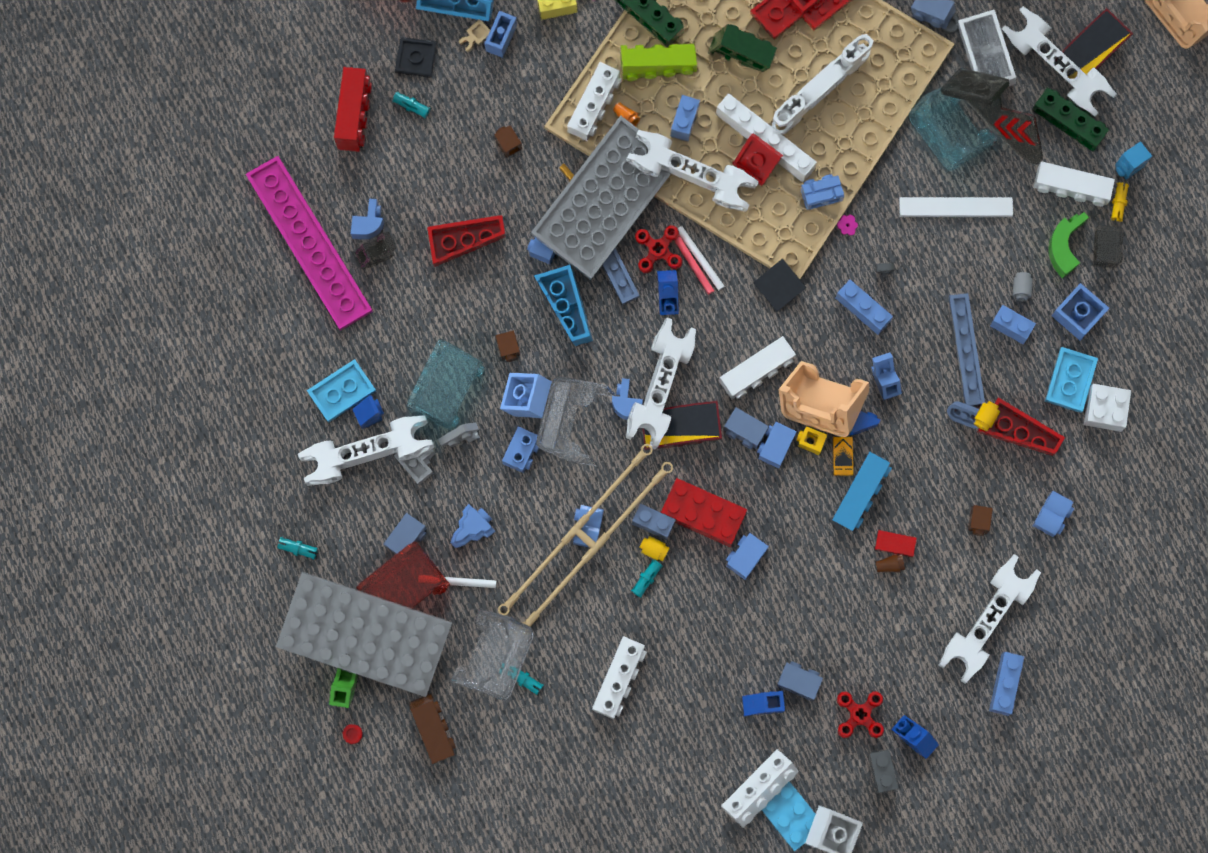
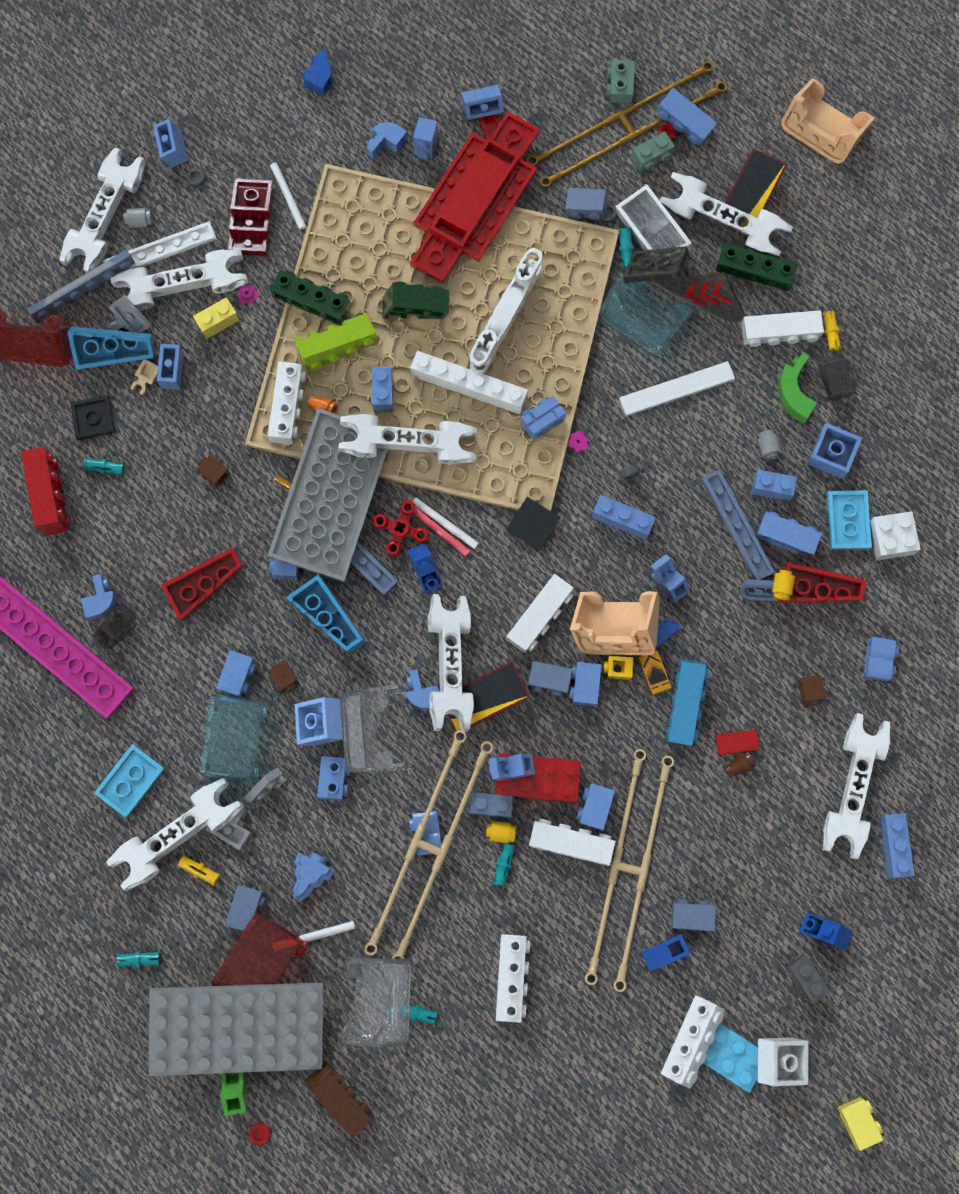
camera: 20 degrees left, 0 degrees up
(368, 412) = (164, 794): blue slope -> none
(384, 498) = (186, 863): none -> yellow pin
(466, 329) = (236, 674): none -> medium blue brick
(683, 492) = (511, 767): none -> medium blue brick
(714, 580) = (572, 843): none -> white brick
(757, 159) = (468, 406): red tile -> none
(768, 627) = (618, 866): none -> tan bar
(854, 720) = (762, 937): red gear -> none
(956, 59) = (626, 247): none -> teal pin
(1010, 373) = (788, 534): none -> medium blue brick
(1132, 160) = (831, 286): dark azure brick -> none

